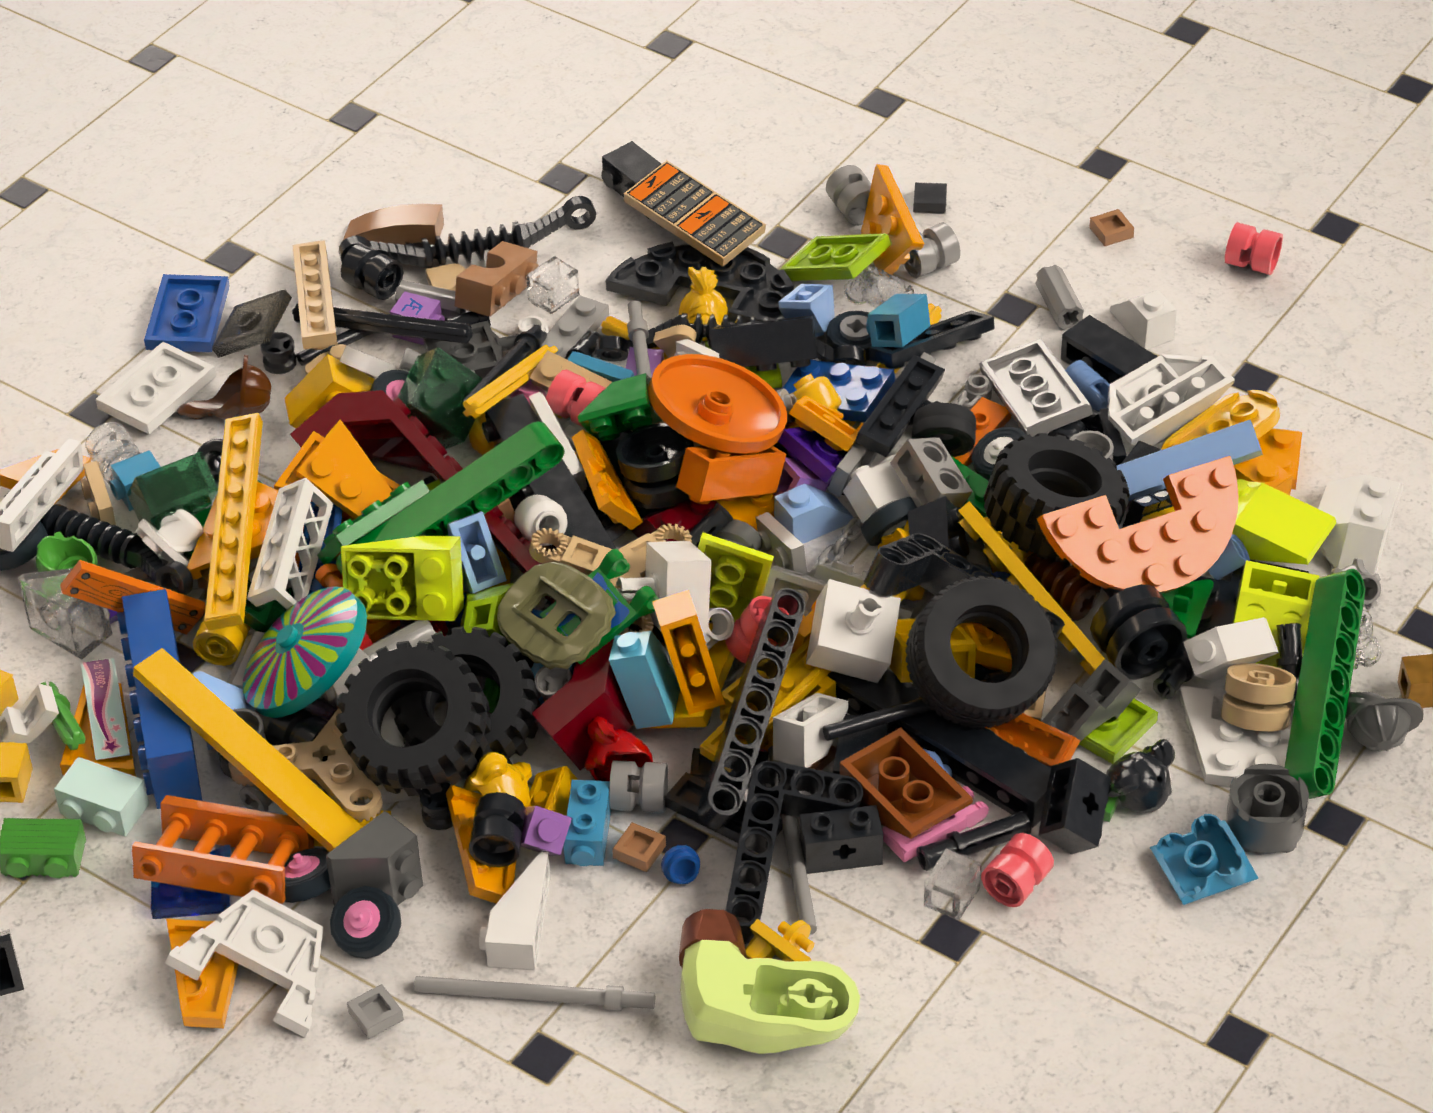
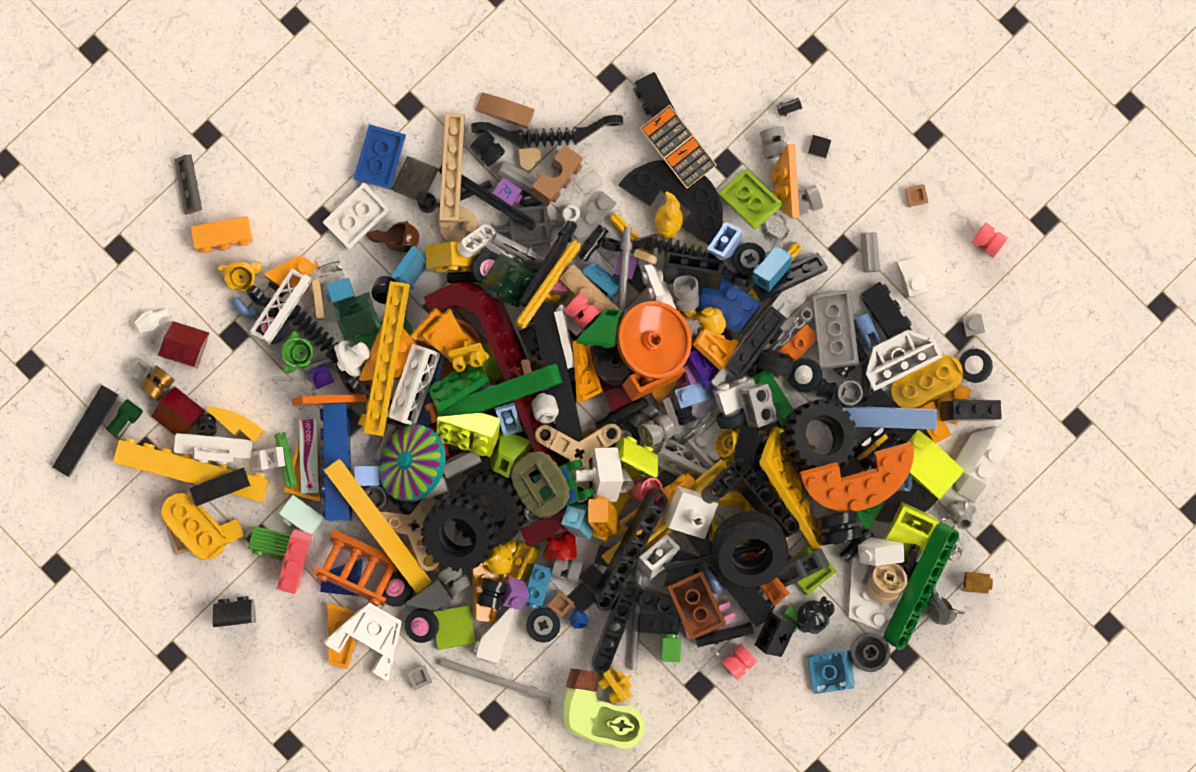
camera: 10 degrees right, 40 degrees up
(92, 853) = (294, 561): none -> coral brick
(276, 430) = (410, 267): none -> dark azure slope
(384, 476) = (469, 354): none -> yellow hips
(434, 840) = (455, 581): none -> light grey wheel
(435, 924) = (455, 628): none -> lime tile
(623, 894) = (543, 625): none -> black wheel
(760, 358) = (686, 293): none -> light grey wheel
(763, 535) = (656, 430): none -> light grey wheel
(813, 542) = (685, 415): none -> black wheel
(867, 158) = (788, 107): none -> black pin
(875, 865) = (671, 648): none -> bright green brick
(1270, 359) = (973, 325): none -> light grey plate
(1299, 397) = (976, 365): none -> black wheel
(1313, 439) = (970, 410): none -> black brick

